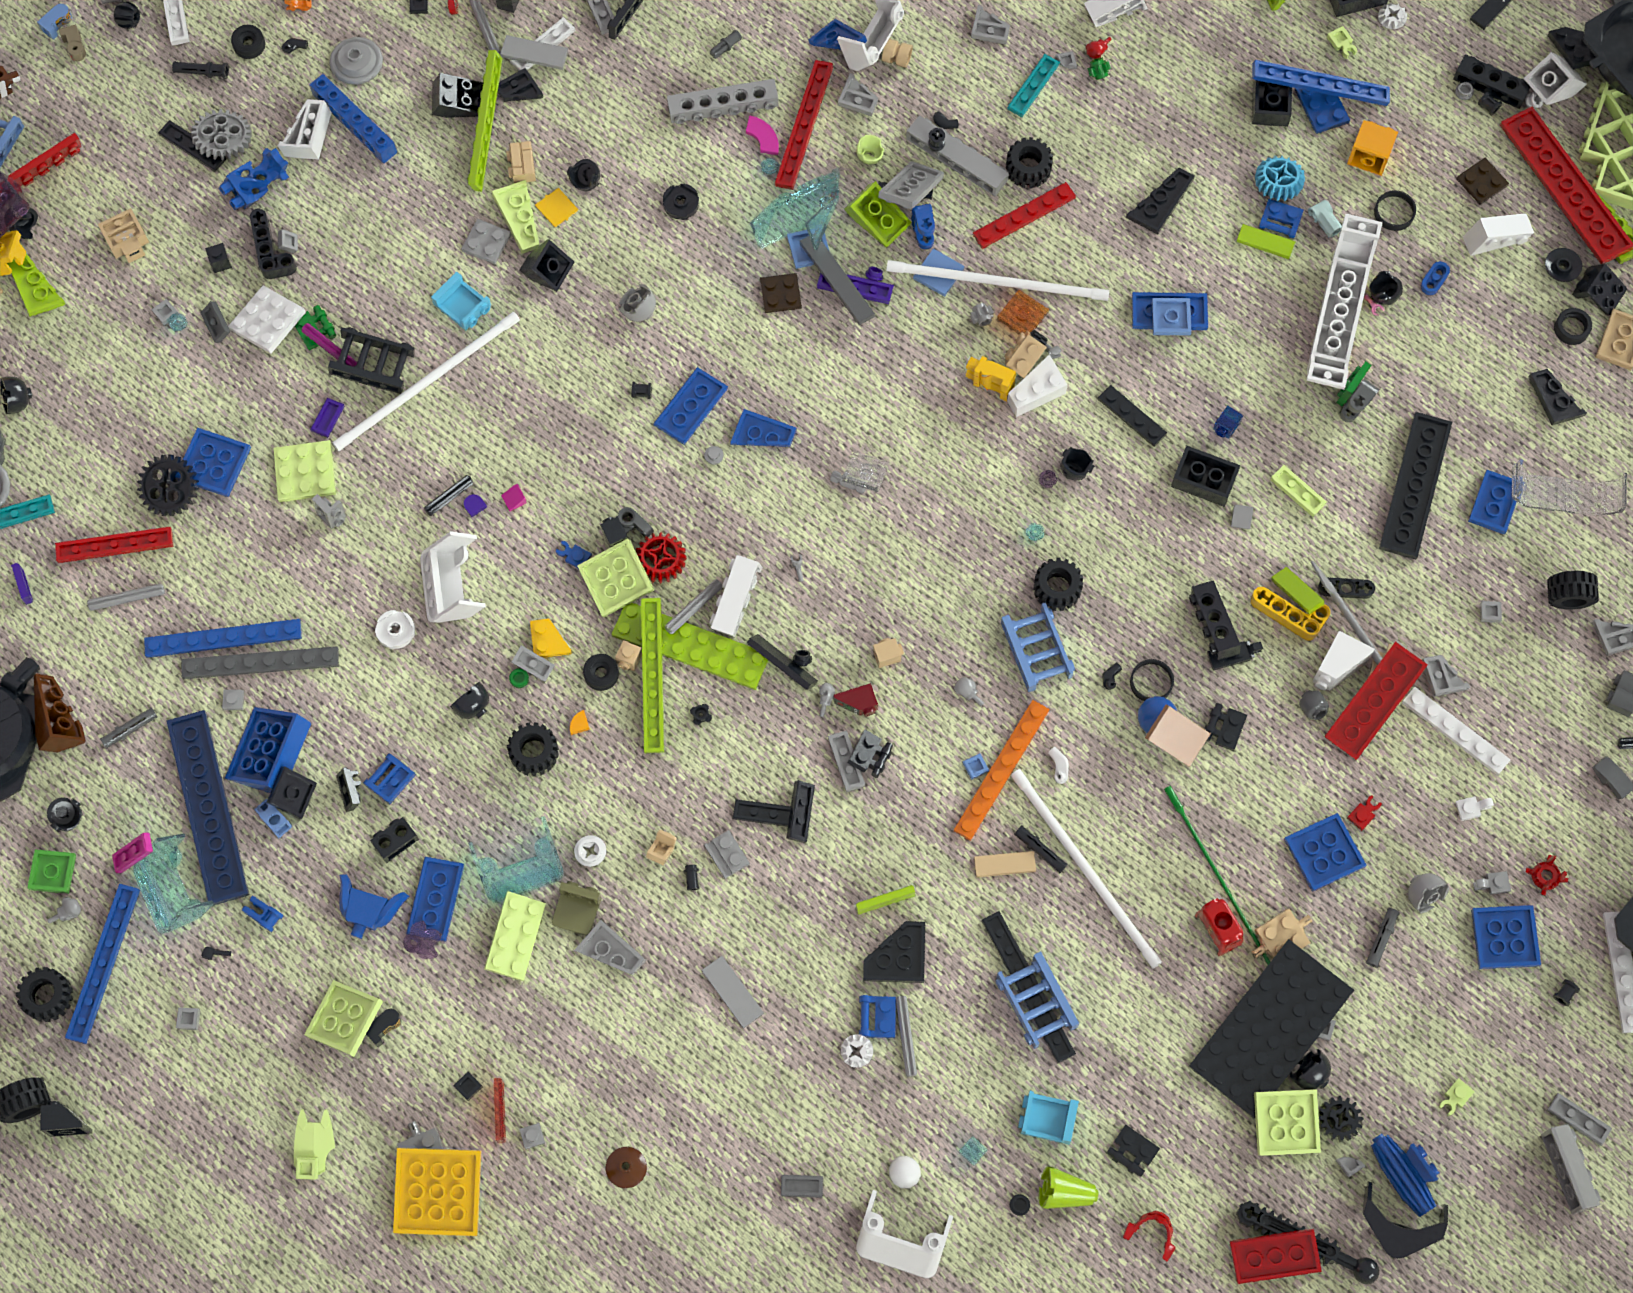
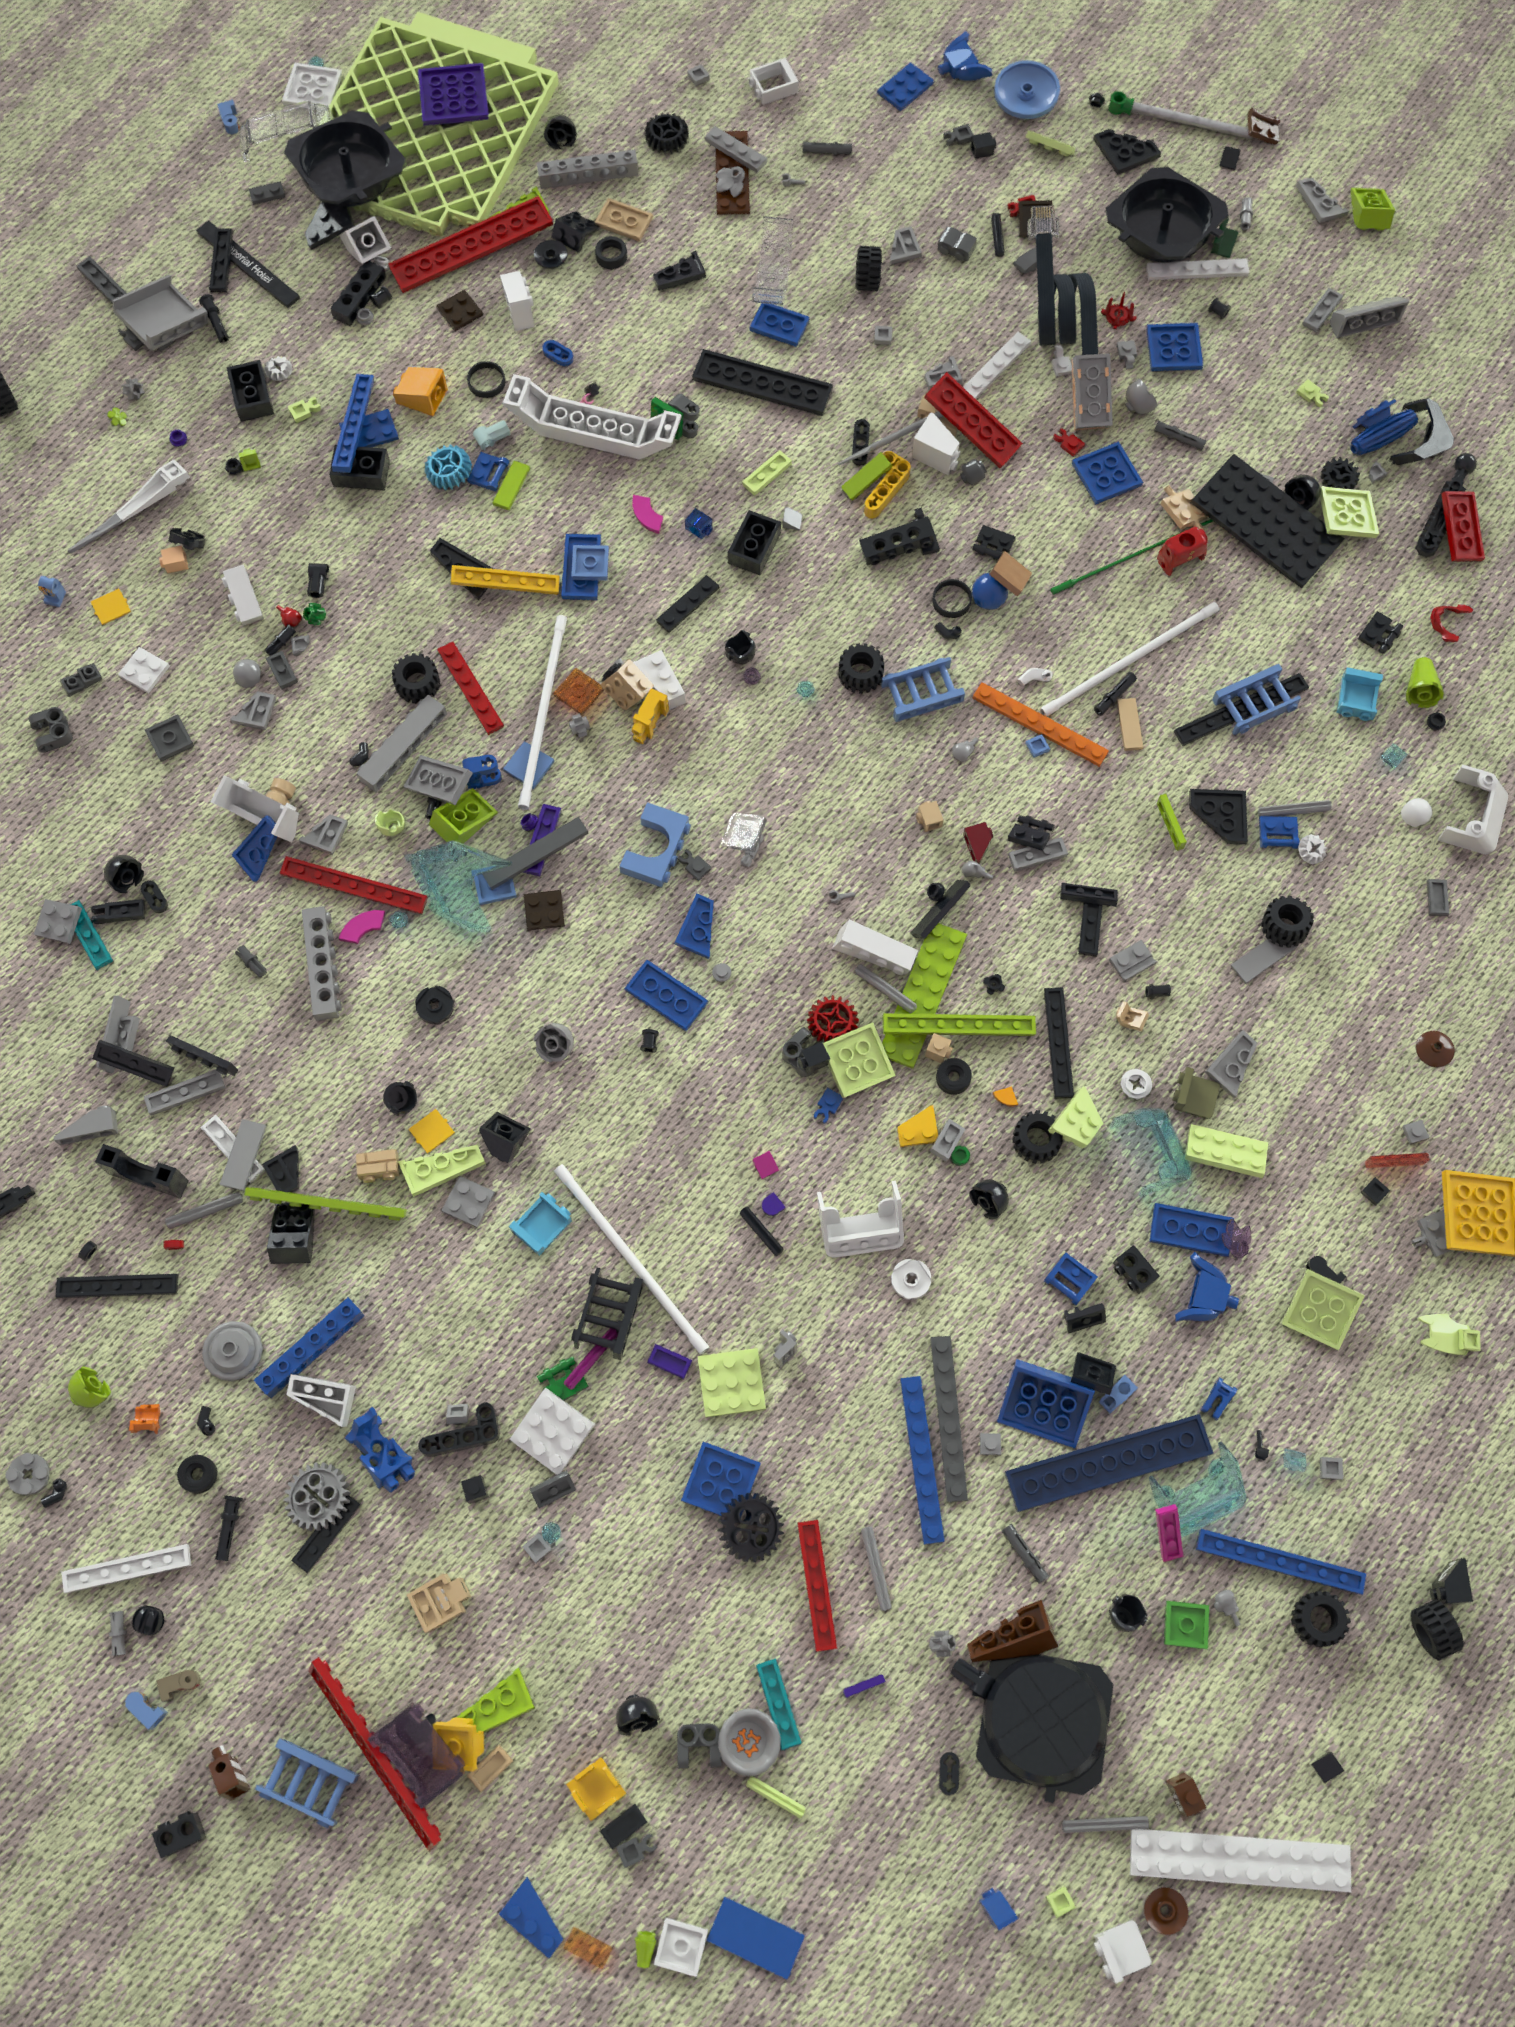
camera: 90 degrees left, 0 degrees up
(52, 650) = (942, 1643): none -> light grey gear
(197, 982) = (1294, 1460): none -> clear light blue plate
(548, 787) = (1078, 1120): none -> yellowish green wing
(637, 776) = (1058, 1043): none -> black tile
(775, 998) = (1292, 910): none -> black tyre
(830, 430) = (695, 866): none -> dark grey plate
(867, 407) = (656, 869): none -> medium blue arch
(940, 139) = (389, 754): black bush -> none
(1032, 16) = (246, 673): none -> light grey hair
(1033, 85) = (326, 675): teal tile -> none
(1036, 45) = (281, 670): none -> dark grey plate
(1069, 41) = (280, 640): none -> black axle
(1145, 237) = (505, 579): none -> yellow plate
(1146, 68) = (317, 576): none -> black piece
(1239, 371) = (645, 513): none -> dark pink tile
(1385, 288) = (569, 387): black cap -> none
(1390, 313) = (592, 389): none -> black plate
(1531, 798) = (1090, 370): none -> piece

